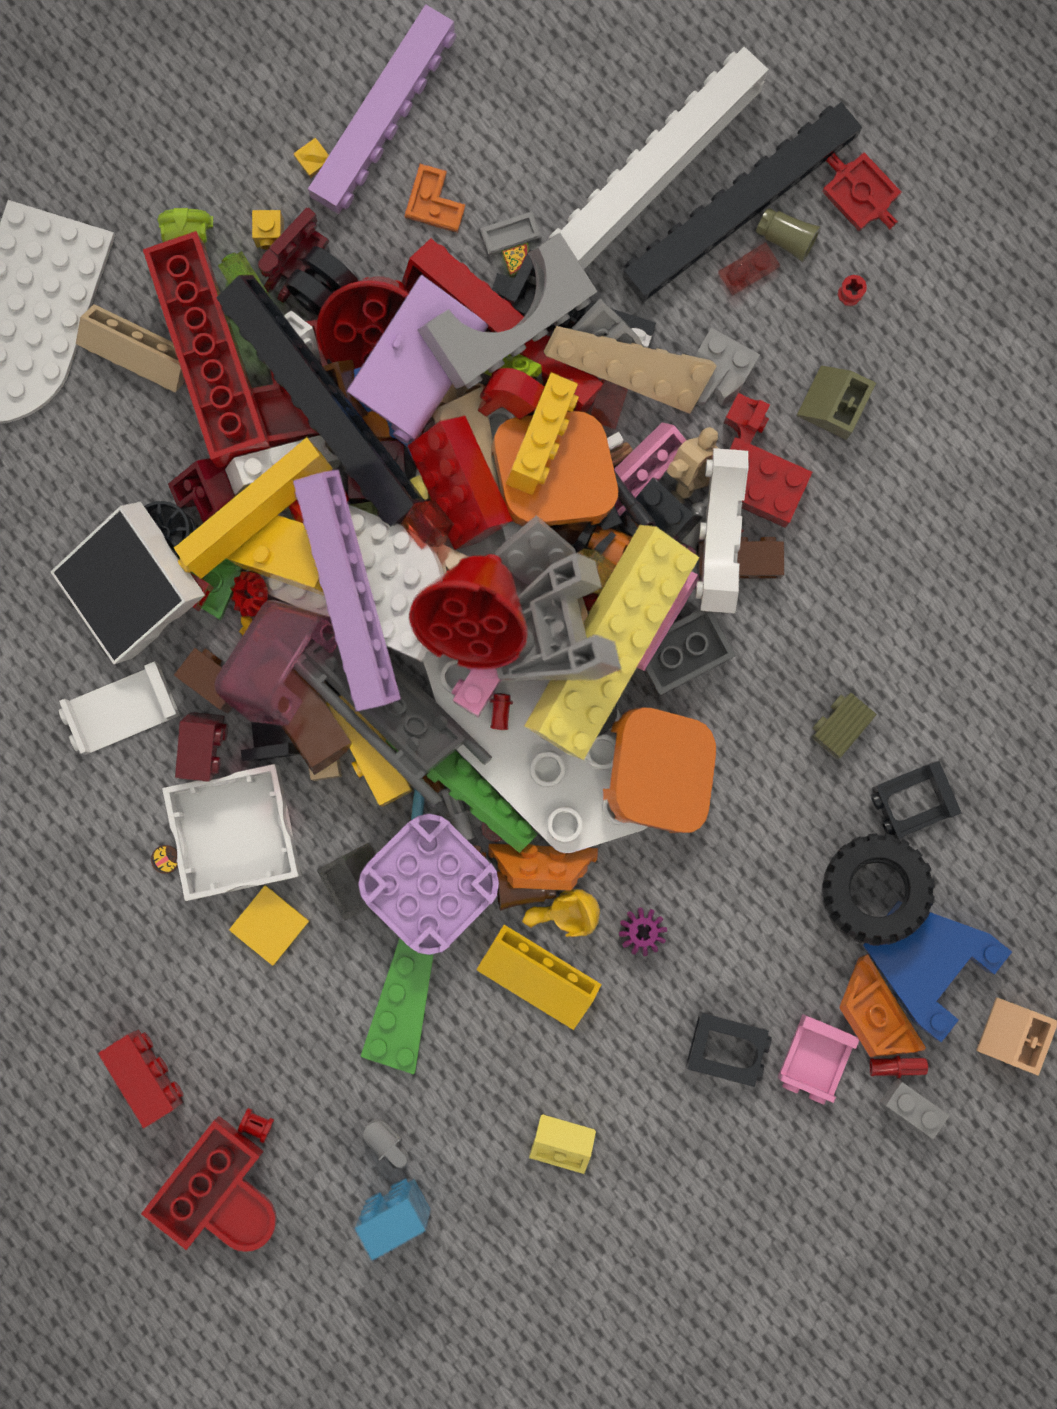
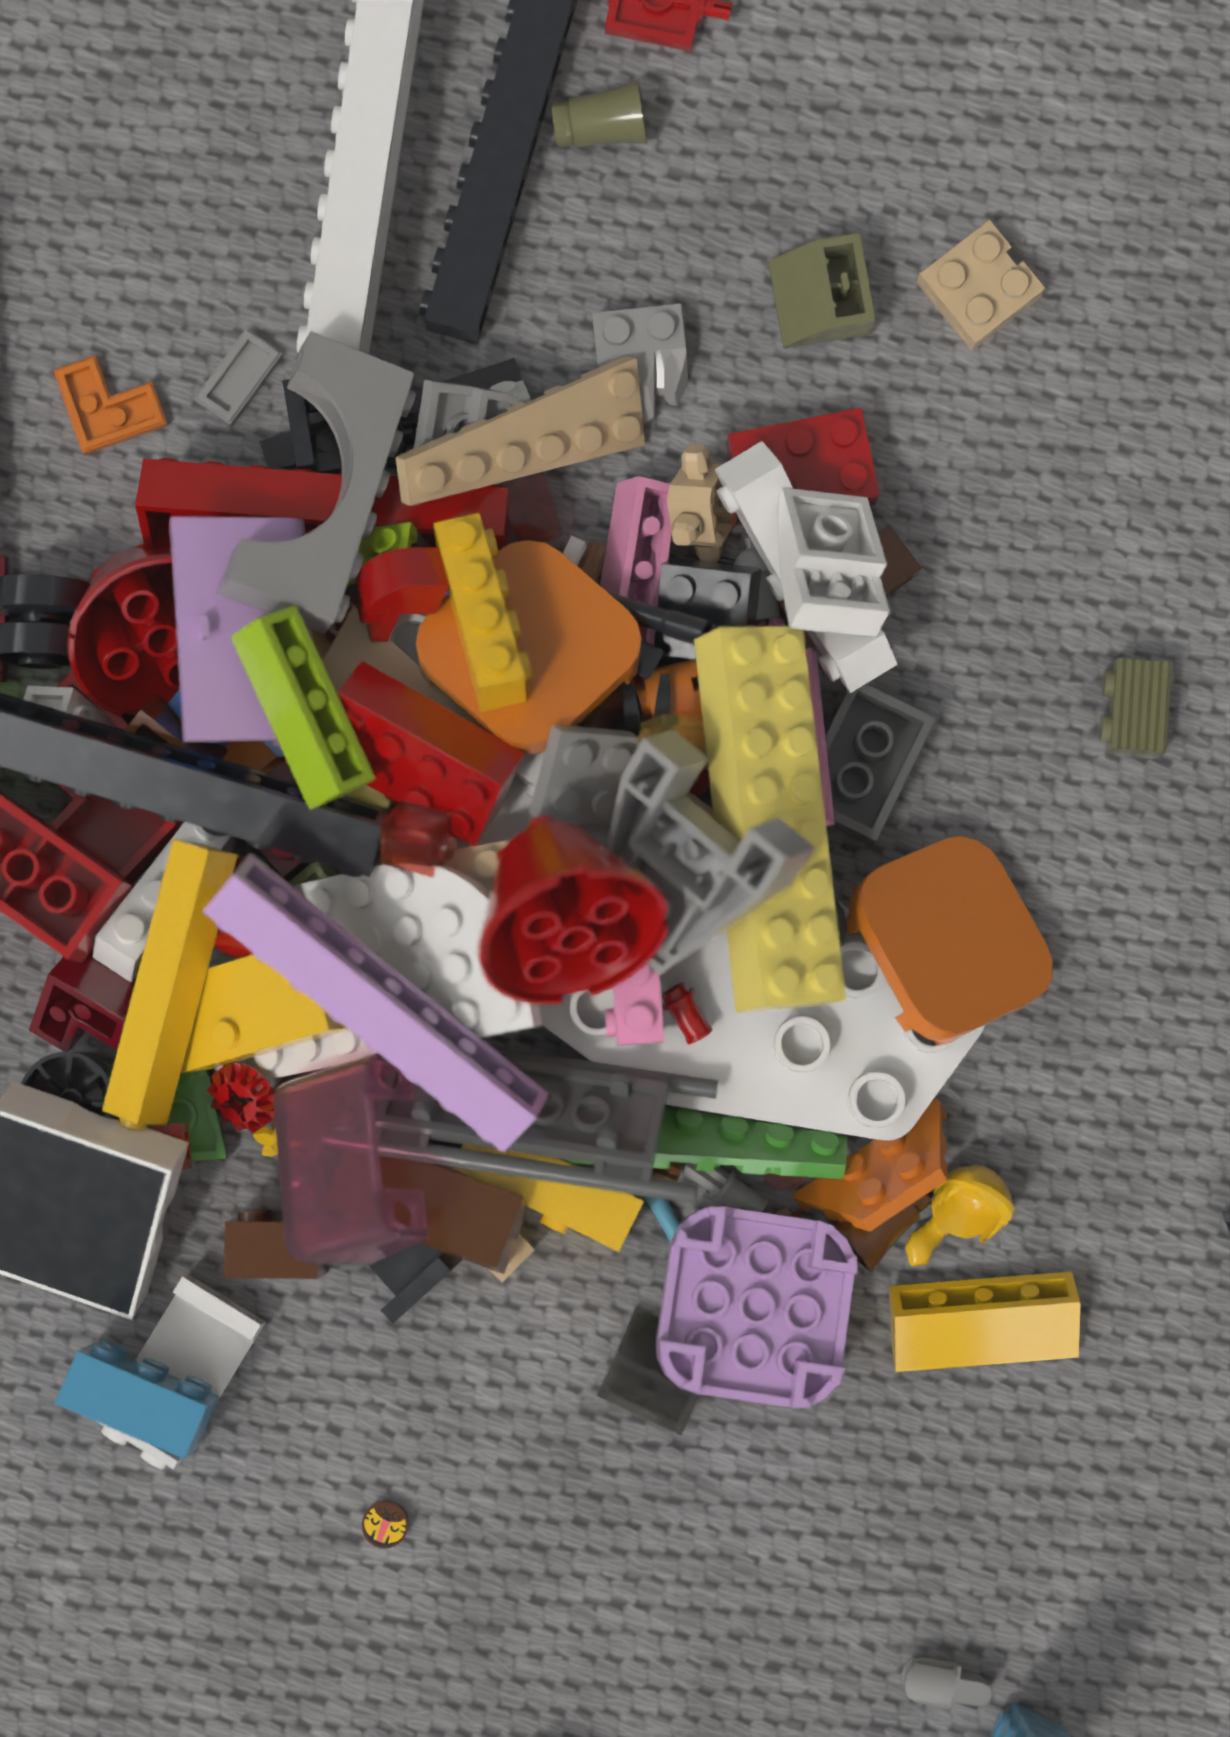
camera: 30 degrees left, 0 degrees up
(88, 705) = (138, 1398): none -> dark azure brick
(197, 746) = (318, 1340): dark red brick -> none
(232, 832) = (448, 1426): white tile -> none
(269, 925) = (583, 1511): yellow tile -> none
(400, 1011) = (837, 1499): bright green wing -> none
(417, 416) = (302, 707): none -> lime brick
(514, 257) = (269, 405): tile -> none
(563, 1144) = (1173, 1515): light yellow panel -> none
(652, 932) = (1061, 1172): magenta gear -> none
(737, 536) = (830, 563): none -> white slope
(747, 417) = (723, 396): red brick -> none
(749, 269) = (583, 201): clear red hinge -> none
(858, 284) = (739, 121): red bush -> none
(919, 454) = (980, 285): none -> tan piece

